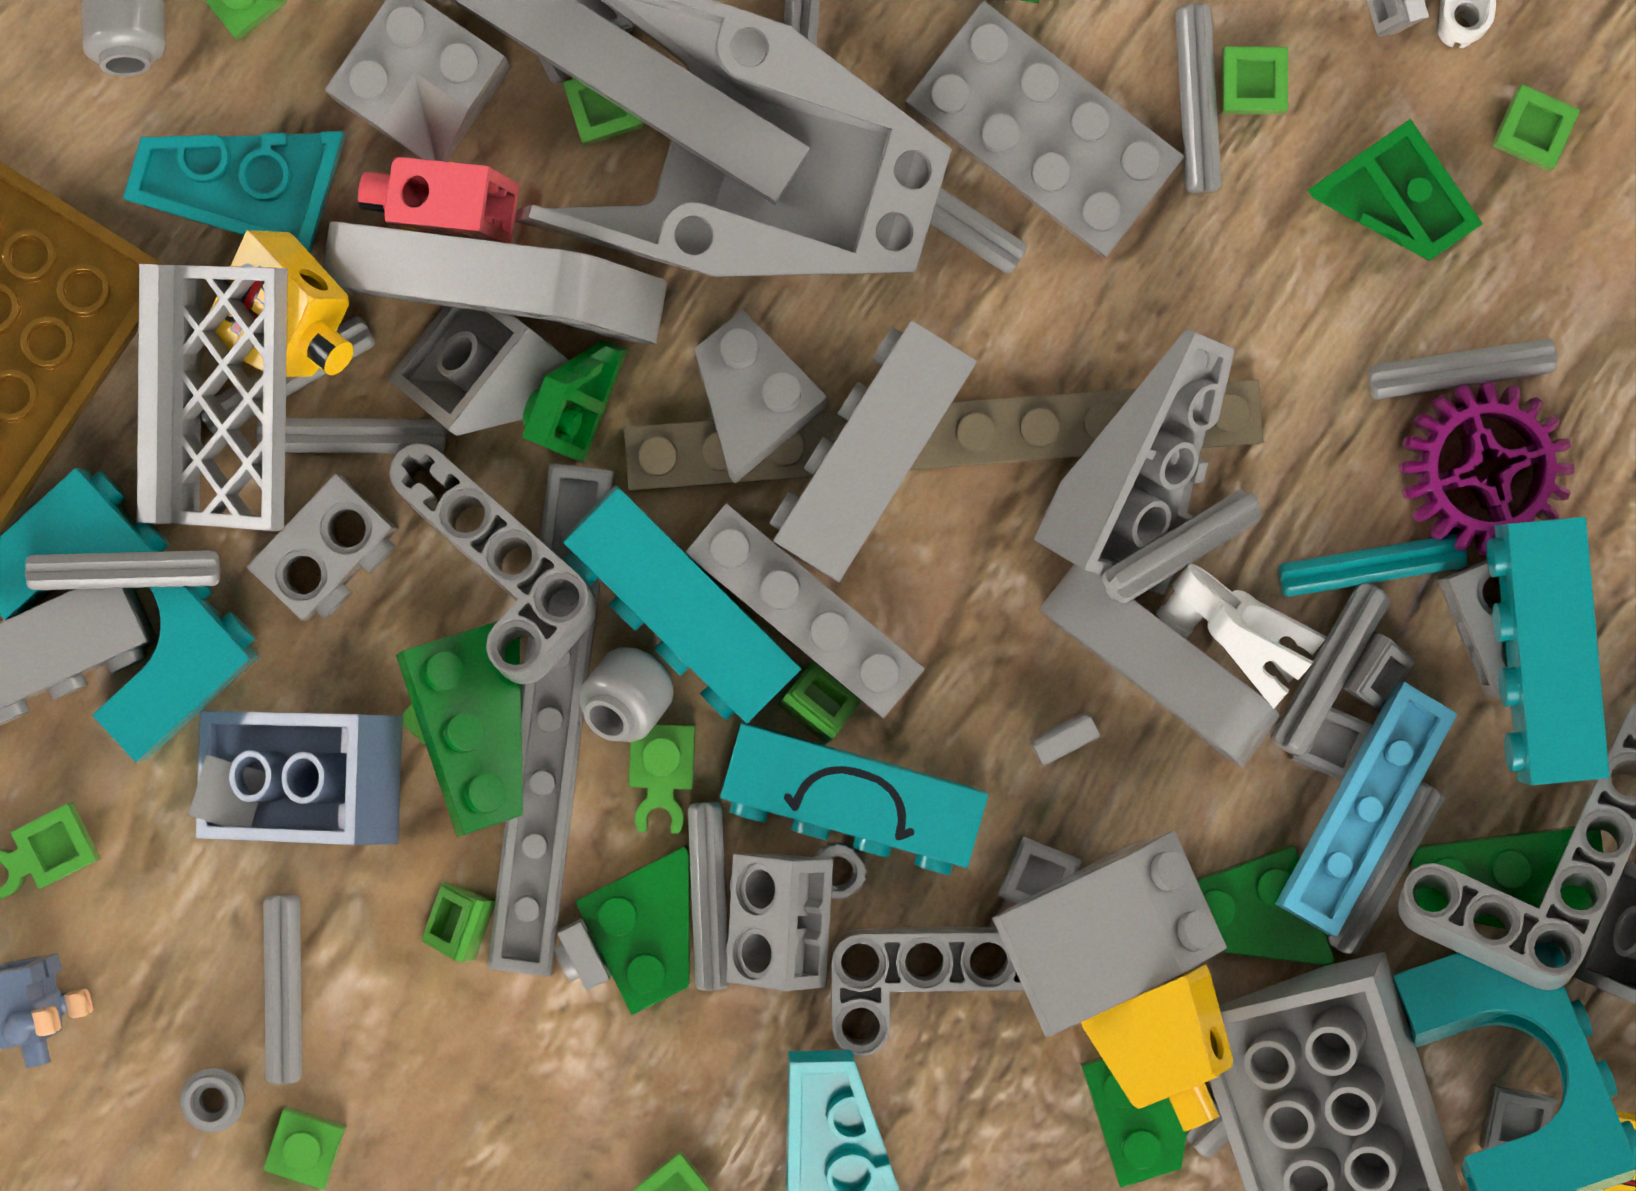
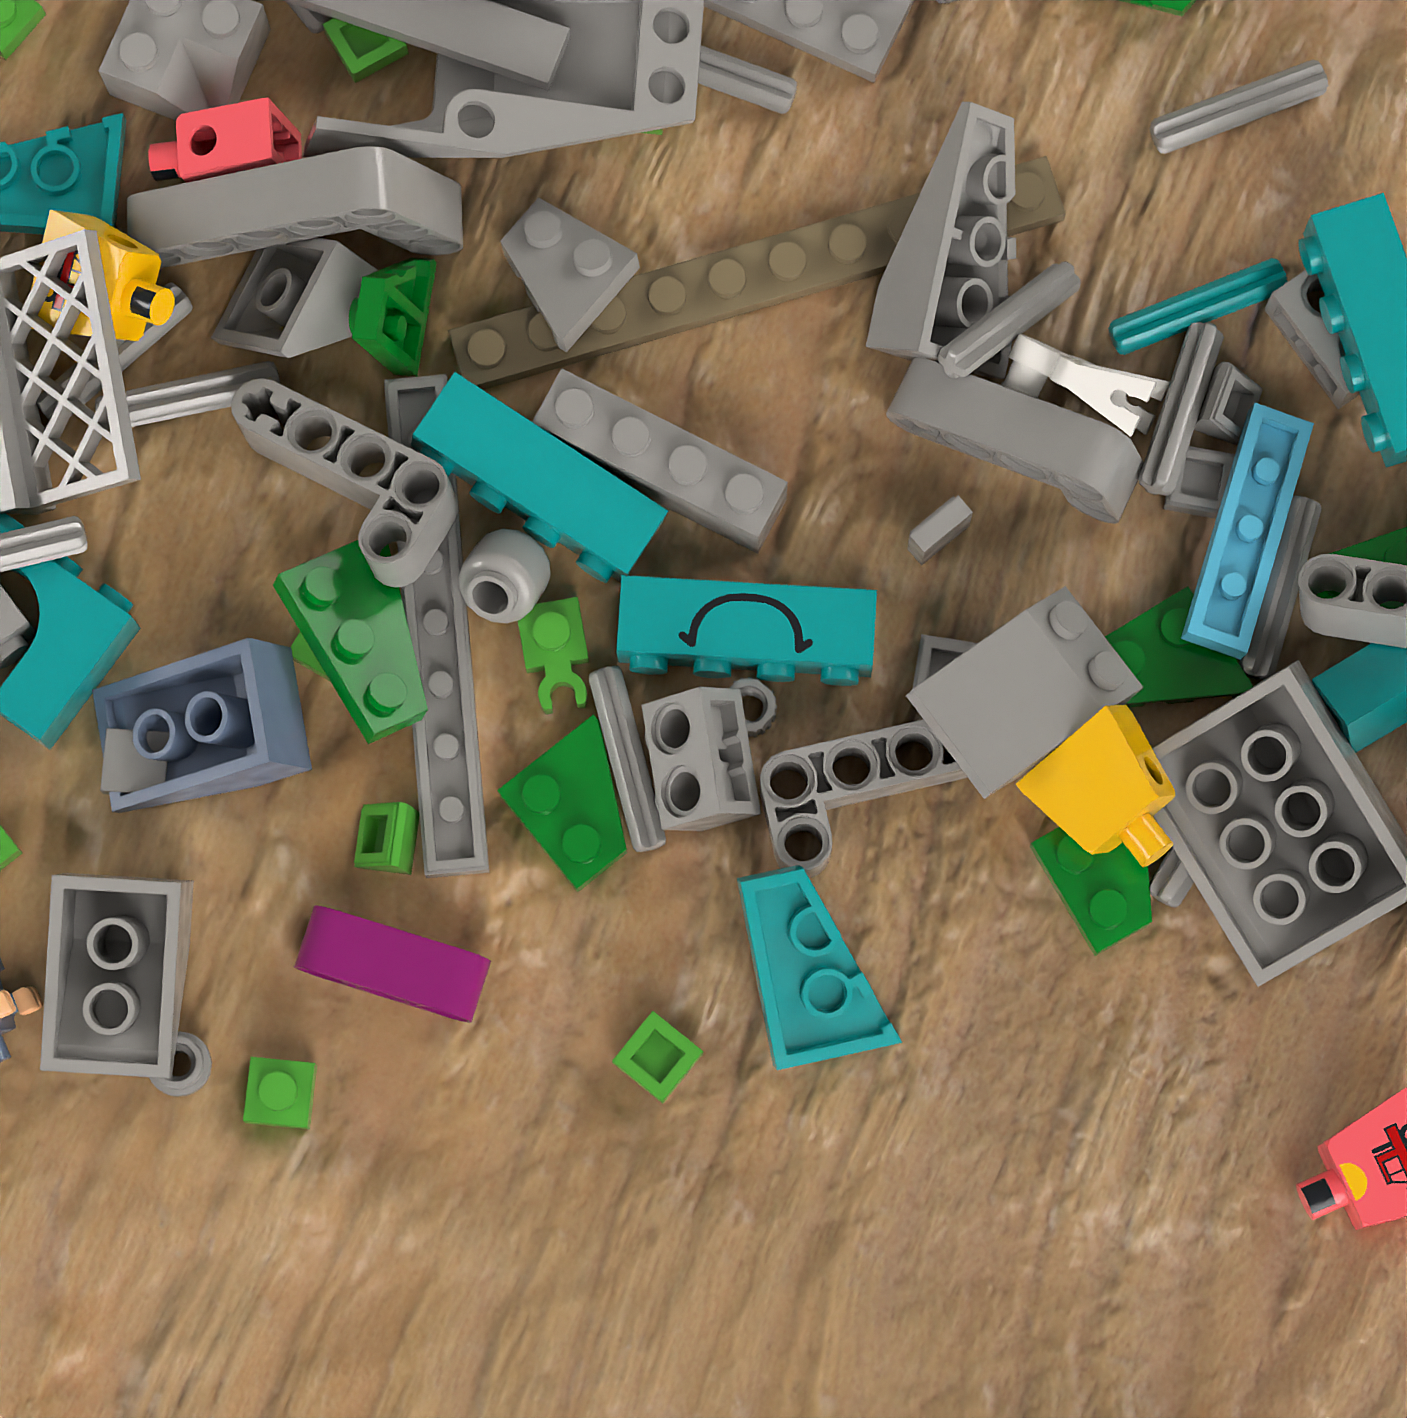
camera: 10 degrees left, 10 degrees down
(166, 1005) = (115, 974): none -> light grey slope
(282, 989) = (226, 940): light grey axle -> none
(313, 535) = (166, 498): light grey brick -> none
(437, 1050) = (392, 963): none -> magenta beam
(580, 955) = (514, 839): light grey plate -> none
(820, 702) = (693, 550): bright green slope -> none
(873, 451) = (692, 289): light grey brick -> none
(1539, 452) = (1262, 146): magenta gear -> none

